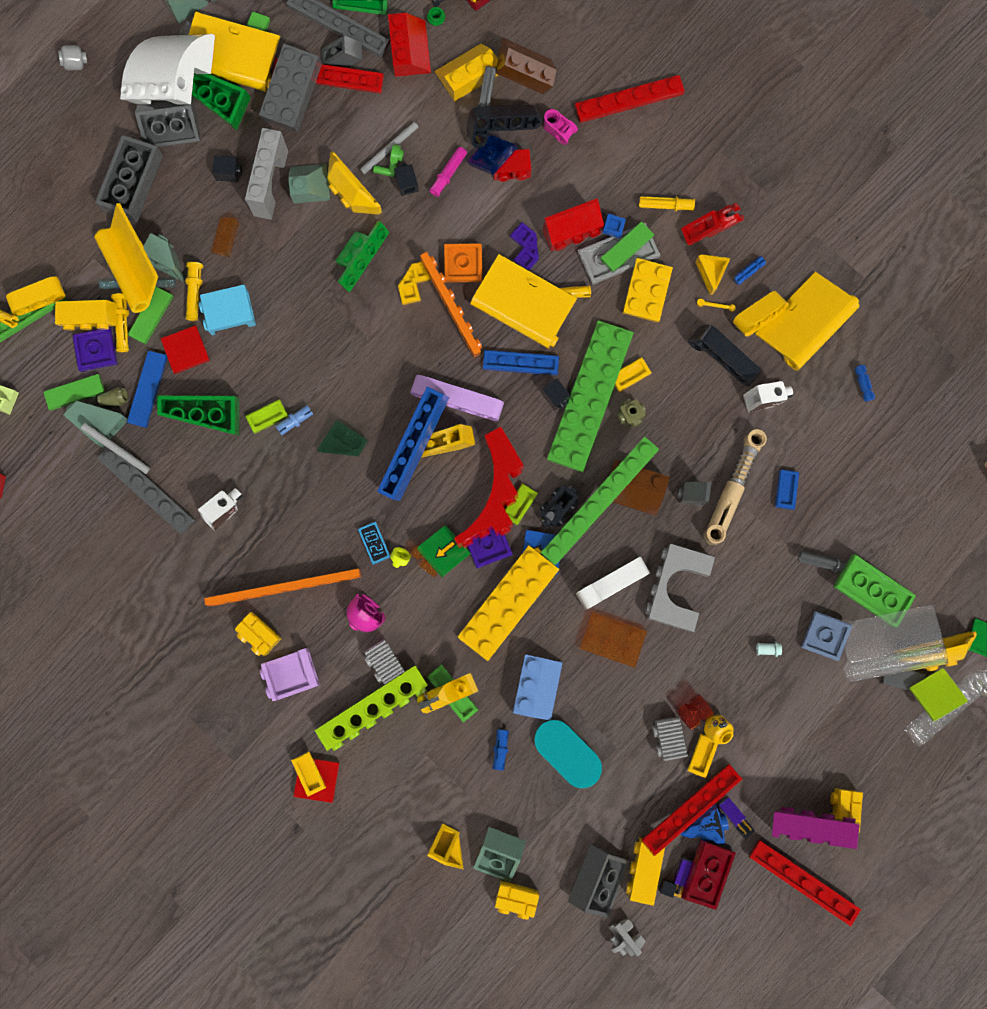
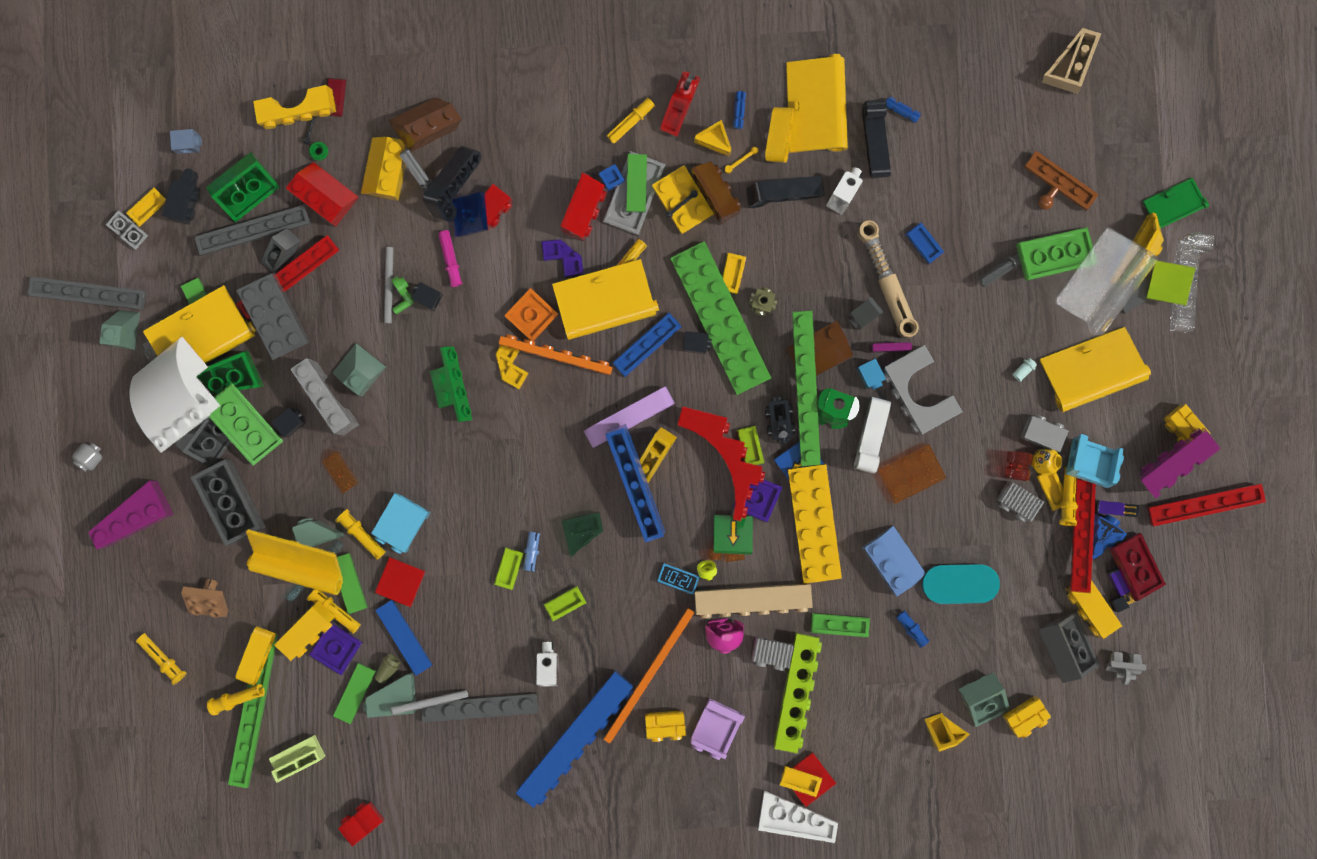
camera: 40 degrees left, 5 degrees up
(43, 226) = (205, 600): none -> medium nougat plate
(61, 125) = (132, 516): none -> magenta wedge
(188, 577) = (573, 740): none -> blue brick
(194, 138) = (244, 425): none -> bright green tile
(206, 411) = (466, 609): green wedge -> none
(275, 797) = (794, 820): none -> white wing
(279, 479) = (565, 603): none -> lime tile
(349, 188) = (392, 344): yellow wedge -> none
(410, 610) = (753, 599): none -> tan brick
(447, 693) = (839, 629): yellow plate -> none
(561, 129) = (497, 144): dark pink piece -> none
(600, 542) = (829, 414): none -> green piece
(629, 99) = (523, 68): red plate -> none
(655, 540) = (871, 374): none -> dark azure brick
(659, 292) = (693, 194): none -> black hinge
(676, 306) = (716, 191): none -> reddish brown slope
(689, 536) = (891, 347): none -> magenta tile
(703, 777) = (1068, 505): none -> yellow pin
(737, 708) = (1044, 433): none -> light grey brick
(752, 766) = (1094, 462): none -> medium azure panel
(826, 382) = (876, 138): none -> black beam
(826, 636) = (1054, 319): sand blue plate -> none
(829, 709) = (1106, 369): none -> yellow door
(927, 543) = (1060, 182): none -> dark orange plate

